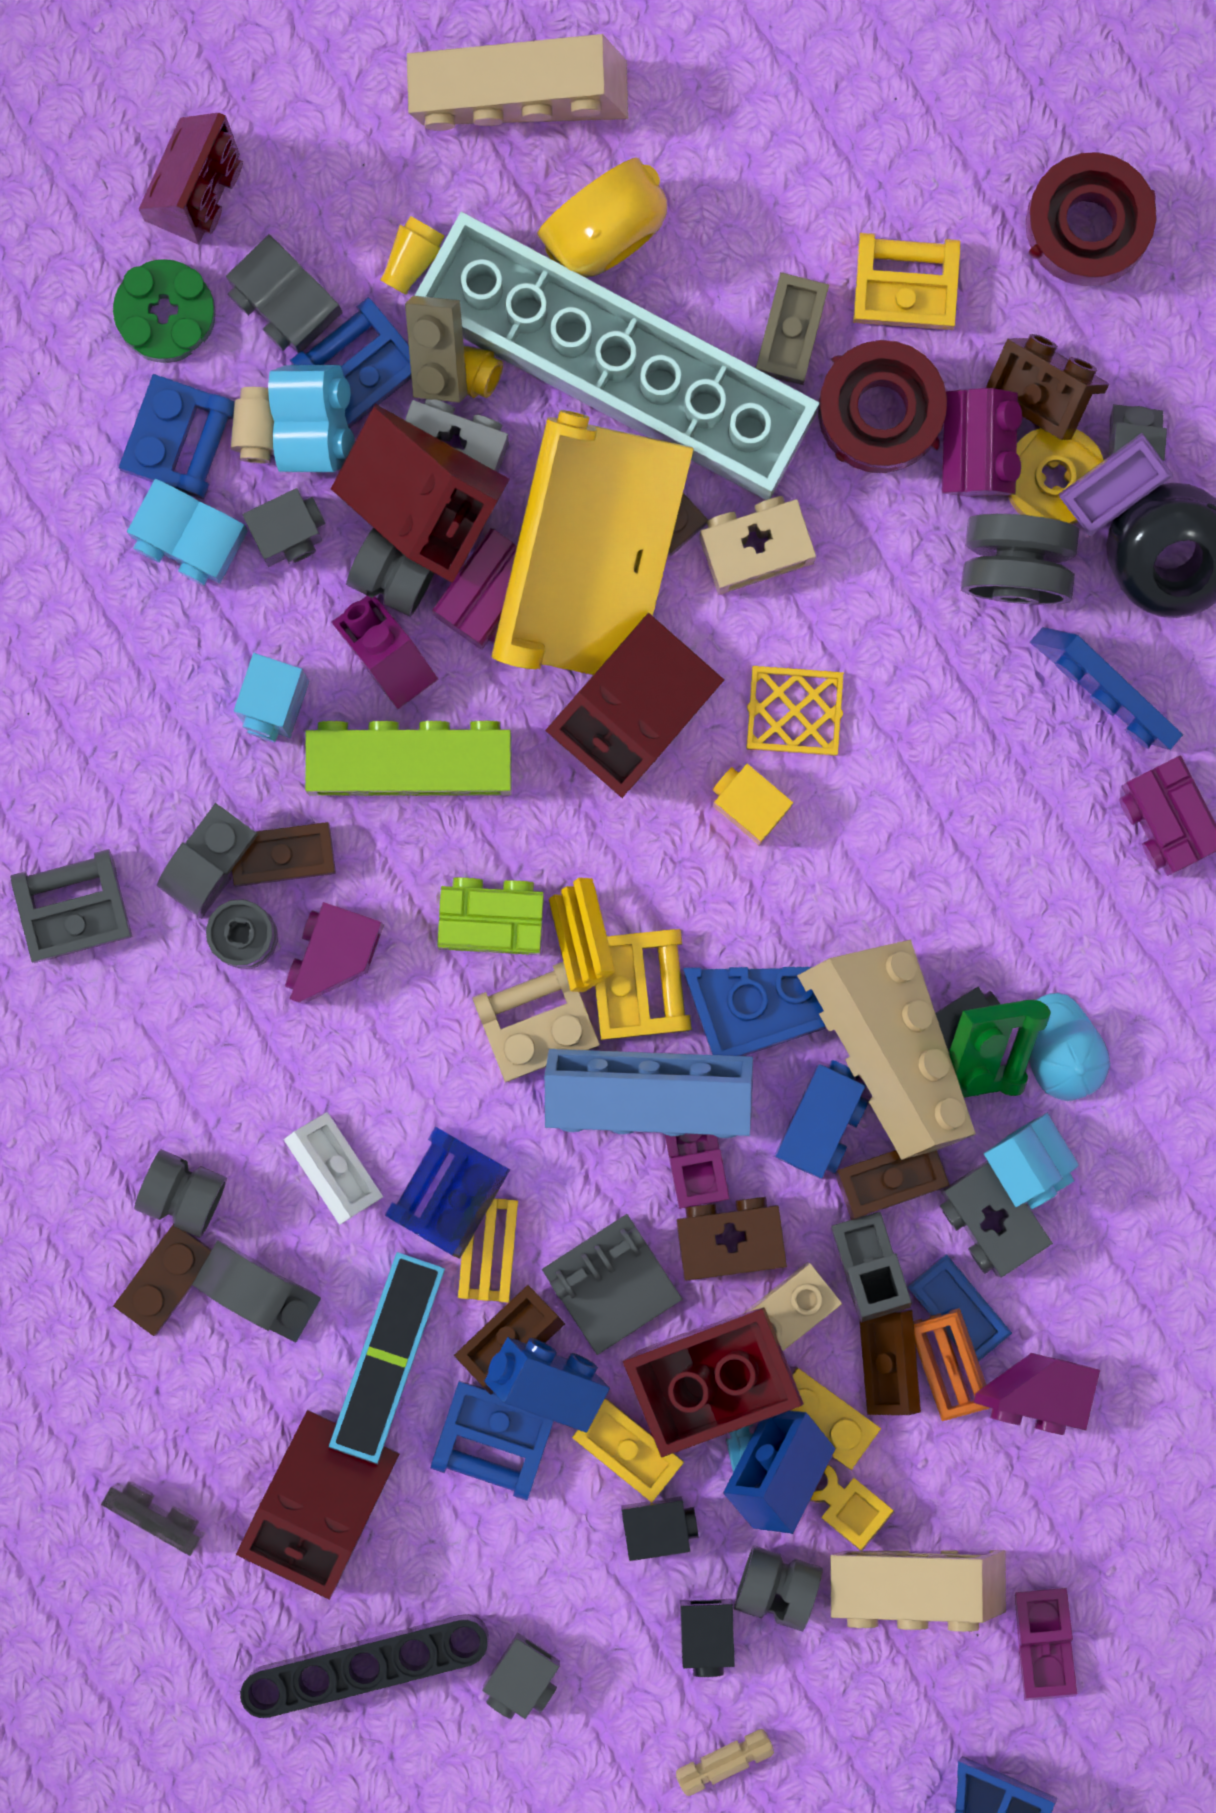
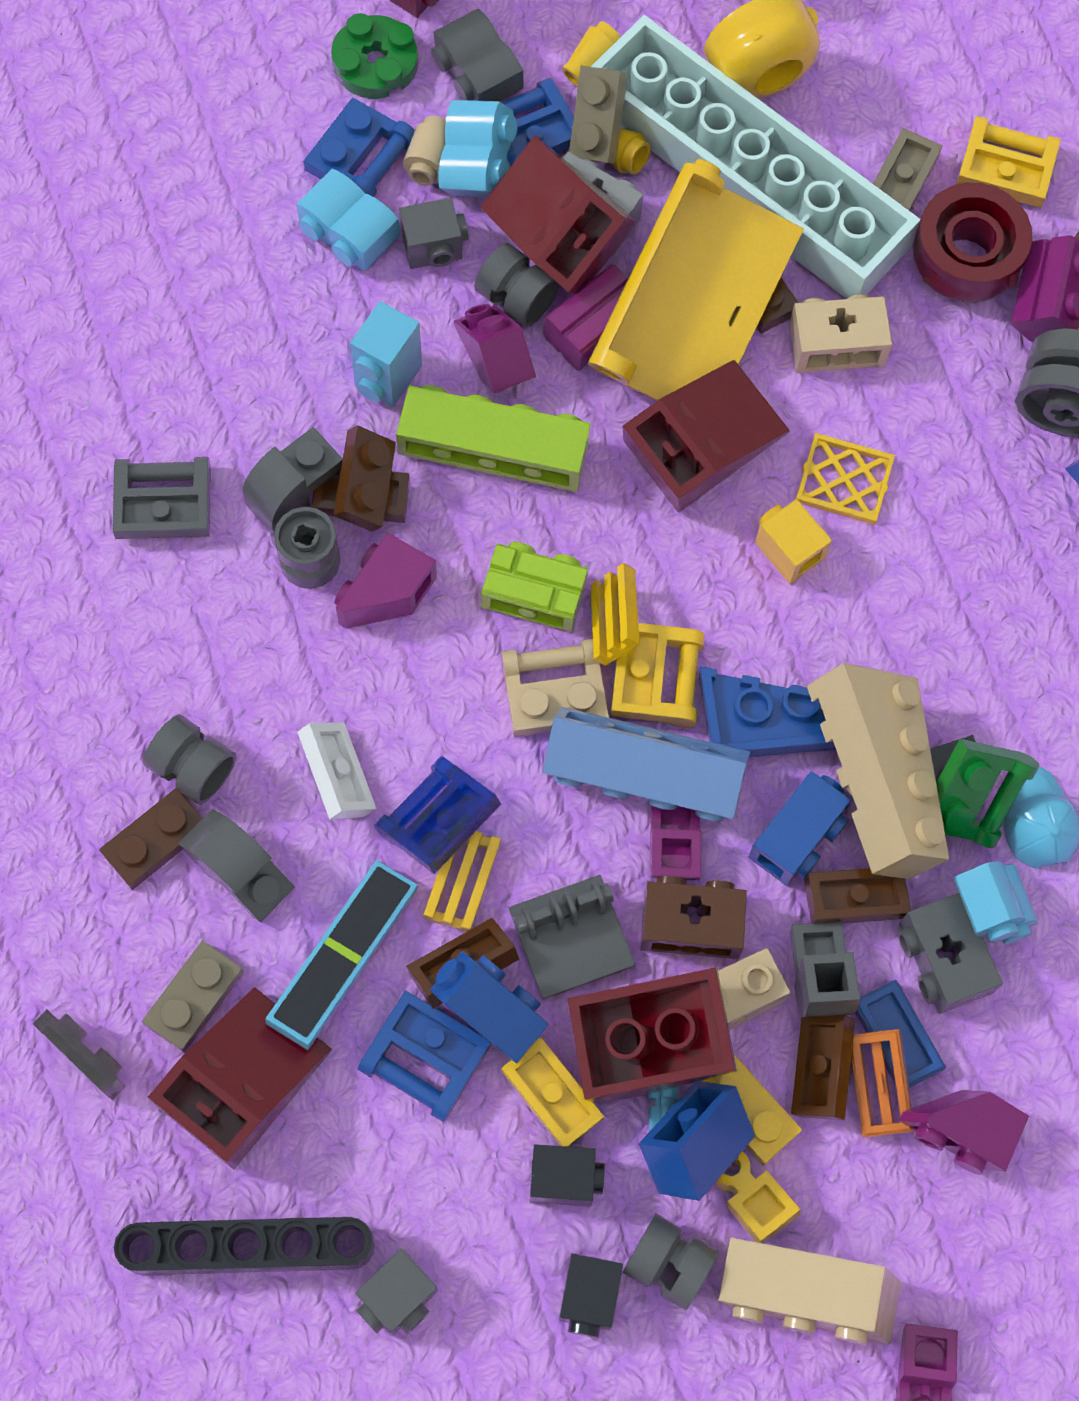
camera: 10 degrees right, 15 degrees down
(247, 1431) = (193, 996): none -> dark tan plate
(284, 847) = (364, 478): none -> reddish brown plate

